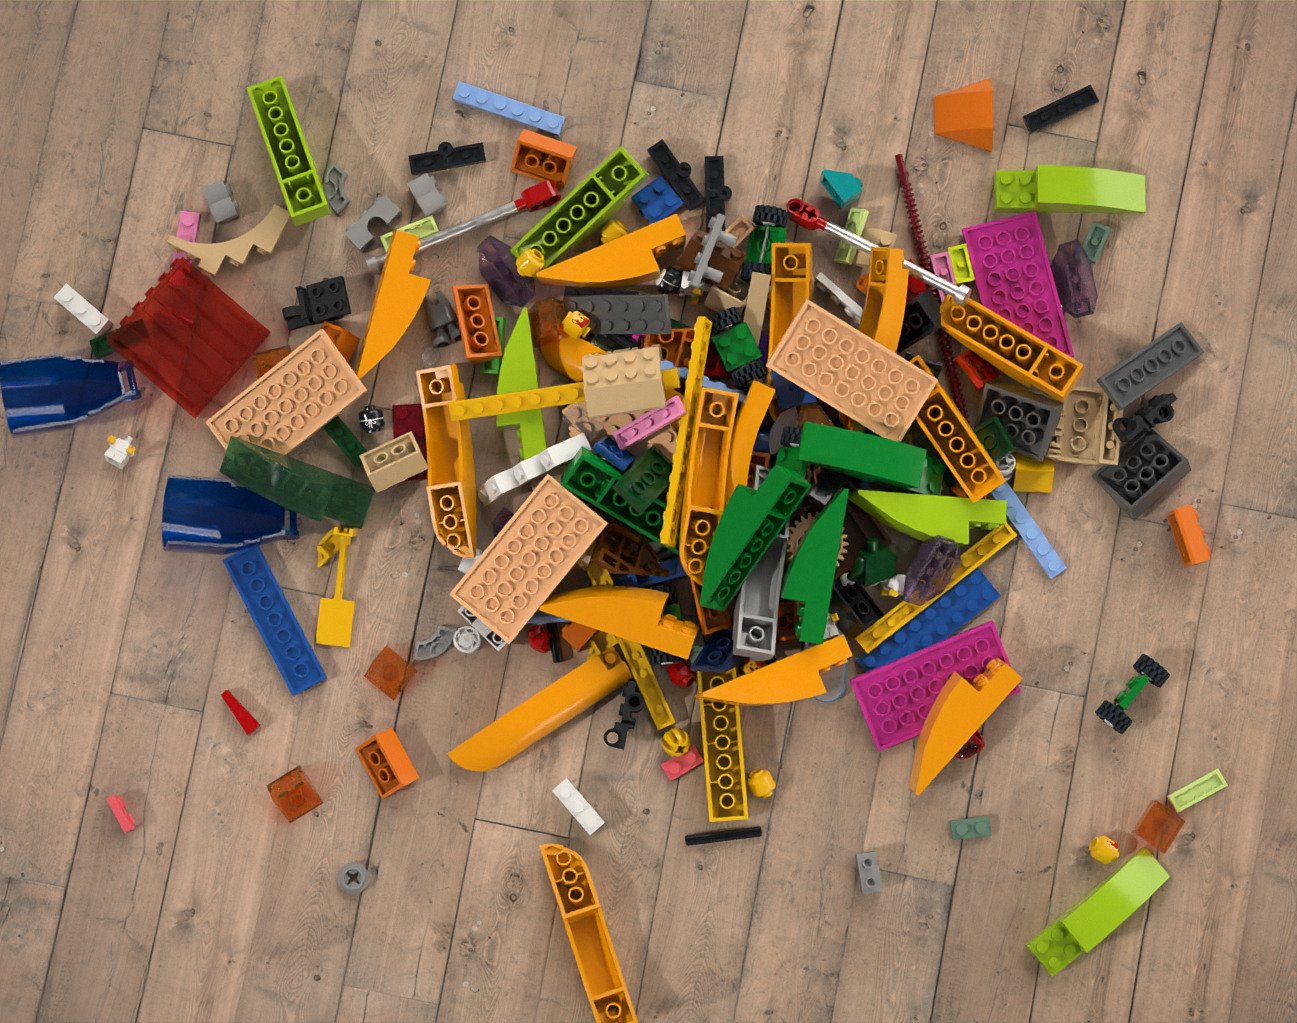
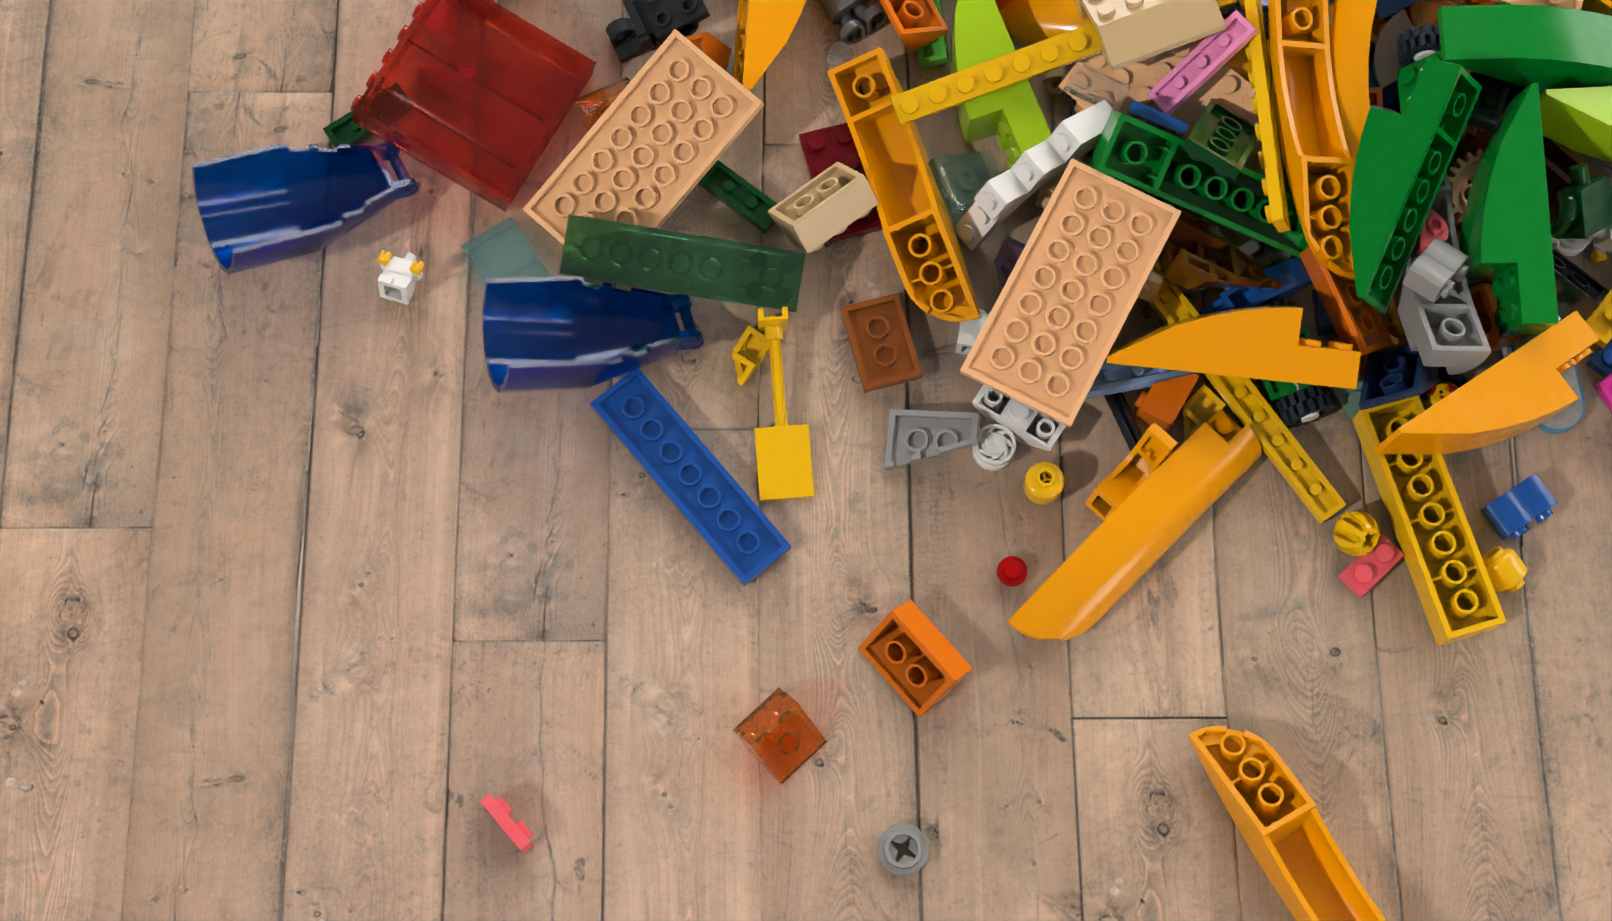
camera: 15 degrees left, 10 degrees down
(83, 310) = (293, 79): white arch -> none
(190, 453) = (503, 253): none -> clear light blue piece
(245, 719) = (673, 633): red piece -> none
(371, 419) = (773, 158): black head -> none
(390, 672) = (888, 518): clear orange slope -> none
(412, 556) = (881, 342): none -> dark orange plate
(427, 624) = (928, 434): none -> light grey wing
(435, 645) = (941, 472): light grey tile -> none
(459, 721) = (1012, 571): none -> red plate
(488, 459) = (959, 179): none -> clear light blue tile
(497, 672) = (1038, 490): none -> yellow head
(539, 638) = (1105, 423): red rock -> none
(548, 674) = (1139, 464): none -> light orange arch
(578, 806) = (1249, 672): white arch -> none
(625, 711) = (1274, 485): black plate -> none
(681, 674) = (1334, 432): red rock -> none
(726, 835) = (1466, 663): black axle -> none
(756, 594) = (1436, 270): none -> light grey brick
(768, 563) = (1433, 227): none -> coral plate
(783, 745) = (1519, 507): none -> blue brick

